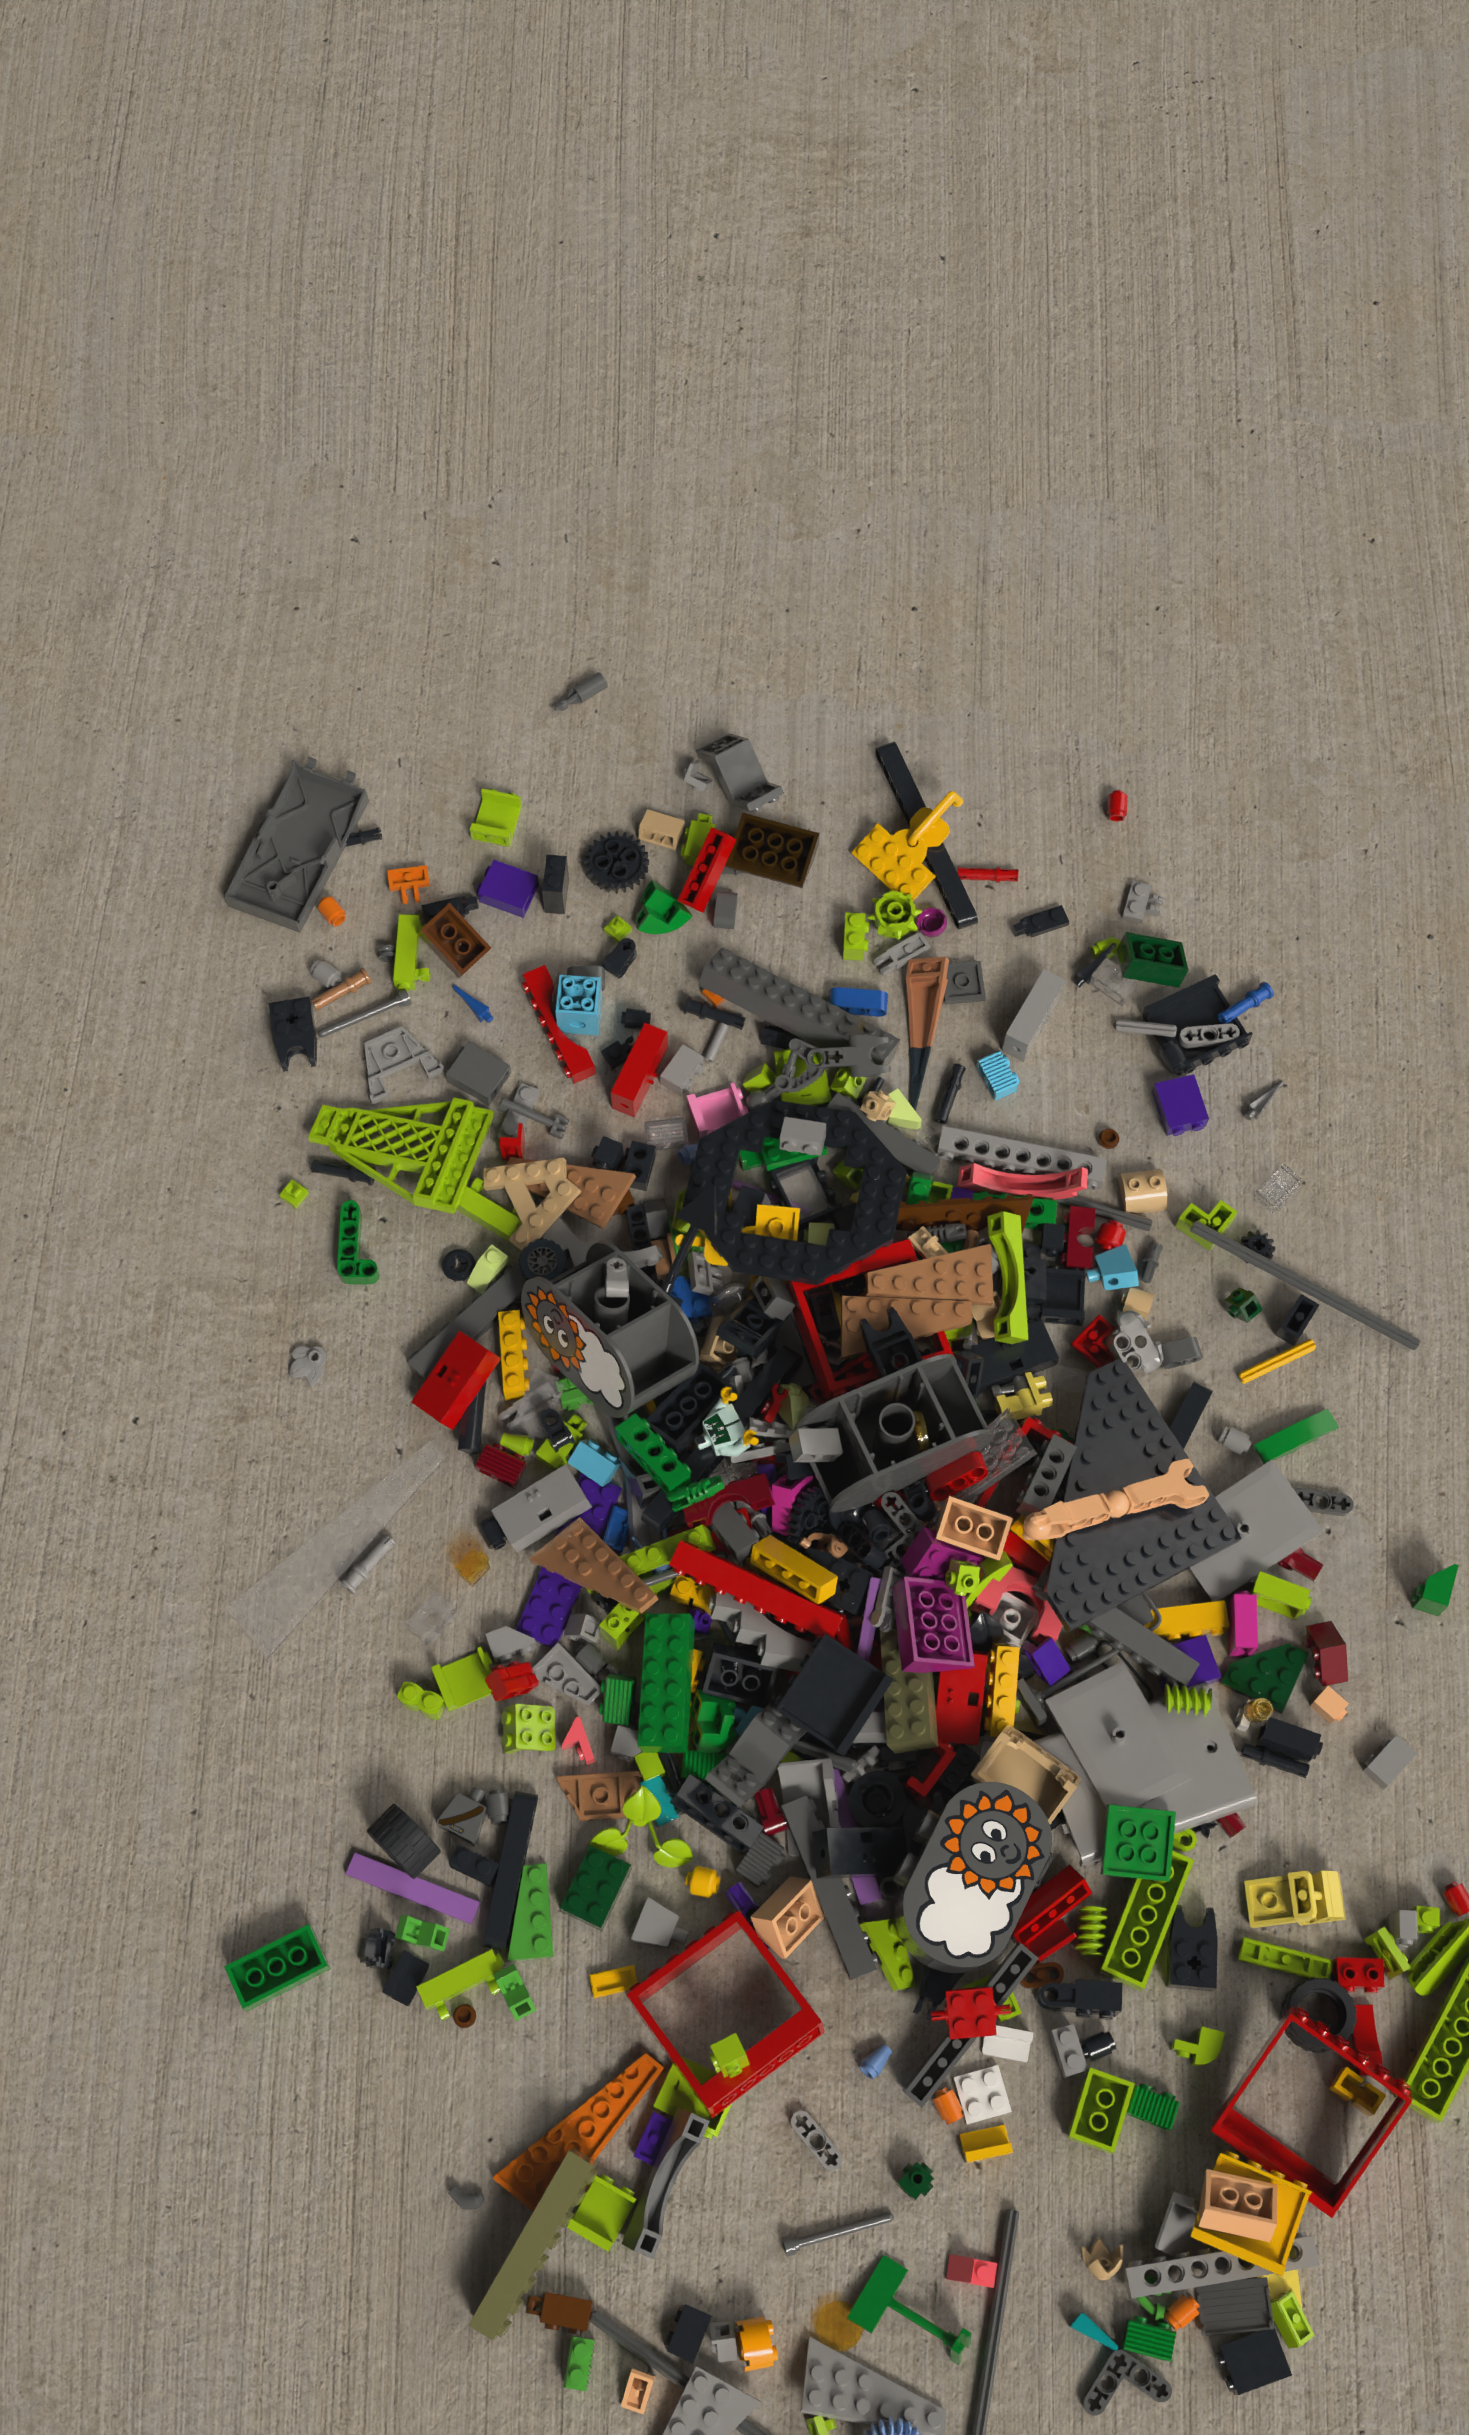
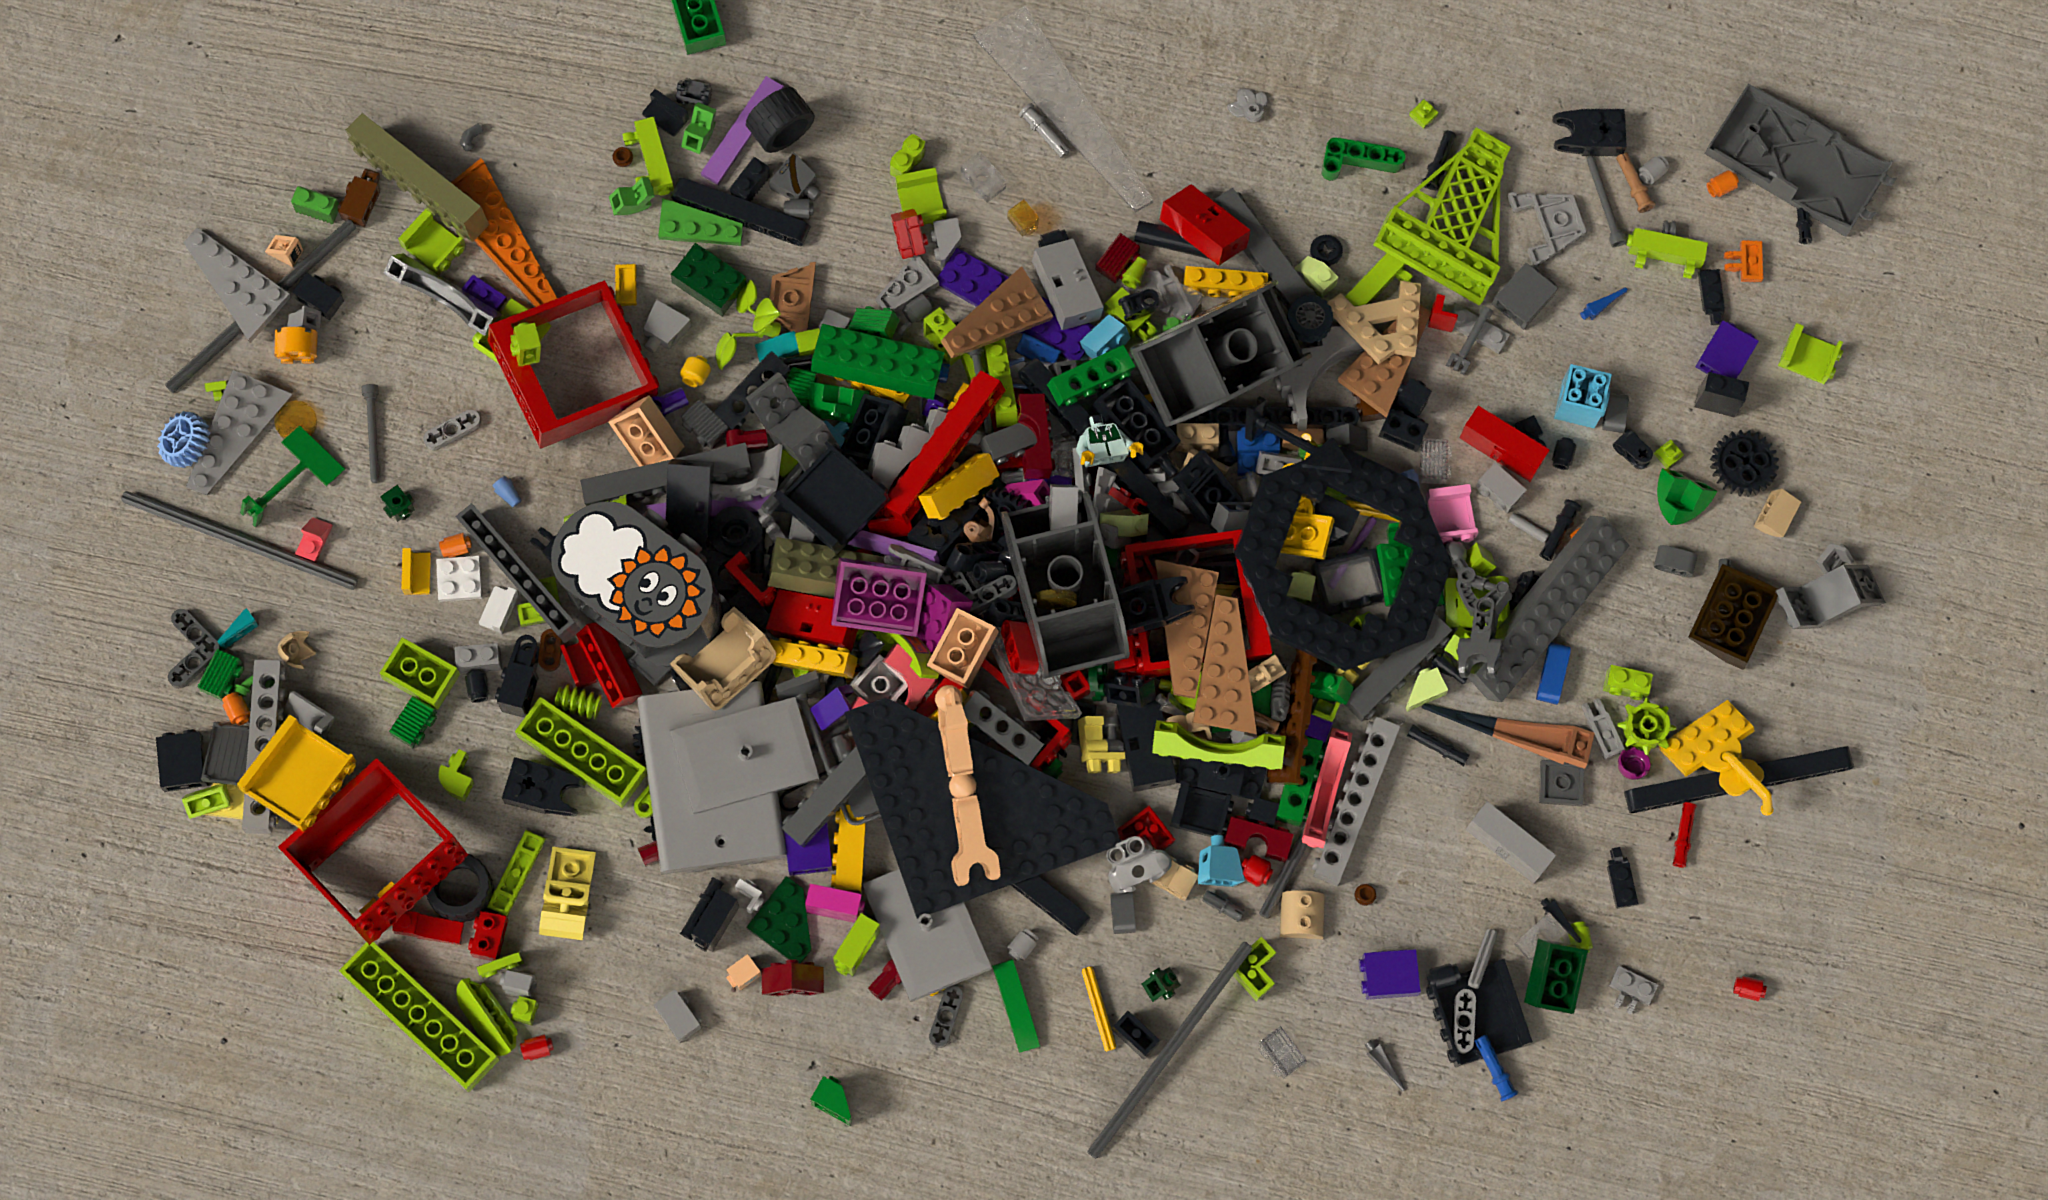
camera: 95 degrees right, 5 degrees up
(454, 940) = (1670, 288): reddish brown brick -> none
(528, 1728) = (864, 246): lime bracket -> none
(575, 1058) = (1525, 388): red arch -> none
(577, 1736) = (848, 288): coral slope -> none
(583, 691) = (1950, 461): dark grey wheel -> none
(583, 1628) = (948, 301): light grey brick -> none
(616, 1279) = (1257, 349): light grey piece -> none
(695, 1492) = (1045, 404): green hinge -> none
(696, 837) = (1759, 549): lime brick -> none
(707, 870) = (1718, 543): red brick -> none
(802, 1136) = (1399, 574): light grey brick -> none
(877, 1105) = (1428, 662): tan brick -> none
(962, 1577) = (917, 629): lime brick -> none
(970, 2012) = (523, 567): red plate -> none
(997, 1075) = (1451, 796): medium azure brick -> none
(1138, 1842) = (643, 748): green plate -> none
(1186, 1700) = (766, 825): lime piece -> none
(1238, 2205) = (305, 760): light nougat slope -> none
(1258, 1710) = (745, 892): clear yellow brick -> none
(1264, 1245) = (1227, 1021): black gear -> none

